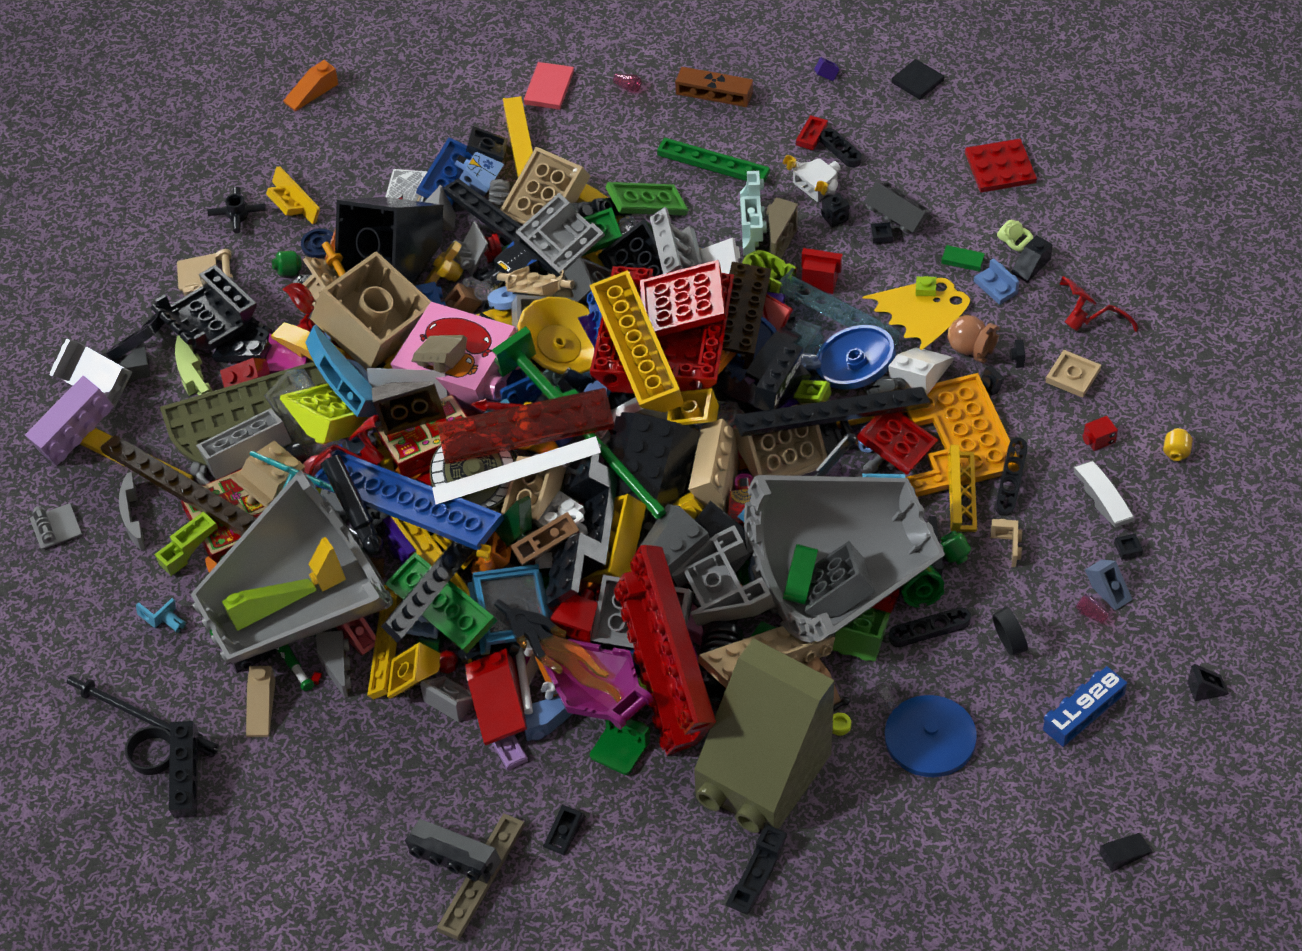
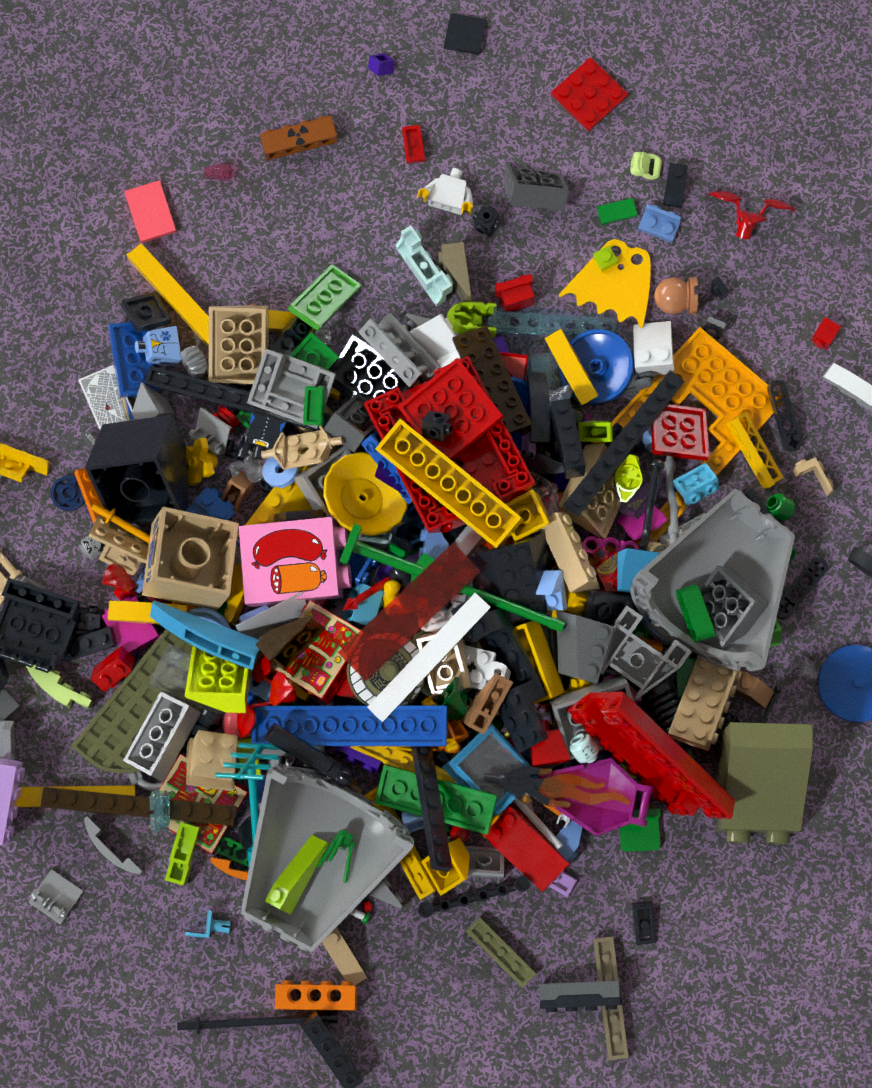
camera: 35 degrees left, 25 degrees up
(140, 736) = (269, 1042): black tyre -> none
(192, 489) = (160, 805): none -> clear light blue hinge
(212, 722) = (284, 999): none -> orange brick
(287, 263) = (59, 532): green head -> none
(325, 566) = (325, 822): yellow slope -> none
(329, 592) = (341, 841): none -> green plant
(407, 779) = (500, 952): none -> olive plate
(441, 352) = (286, 576): dark tan slope -> none
(468, 722) = (520, 884): none -> black bar
(568, 251) = (314, 406): none -> green tile
(609, 628) = (584, 748): none -> light aqua head
(658, 296) = (436, 426): none -> black brick
(677, 481) = (554, 590): none -> light blue slope
(709, 160) = (349, 221): green plate -> none
(758, 870) = (804, 874): black slope -> none
(820, 445) = (628, 477): none -> neon yellow hat
(830, 344) = (571, 366): none -> yellow slope
(838, 140) = (443, 139): black beam -> none
(841, 724) = (785, 712): neon yellow tile -> none
(881, 232) = (536, 222): black plate -> none
(1073, 373) = (771, 284): tan plate -> none

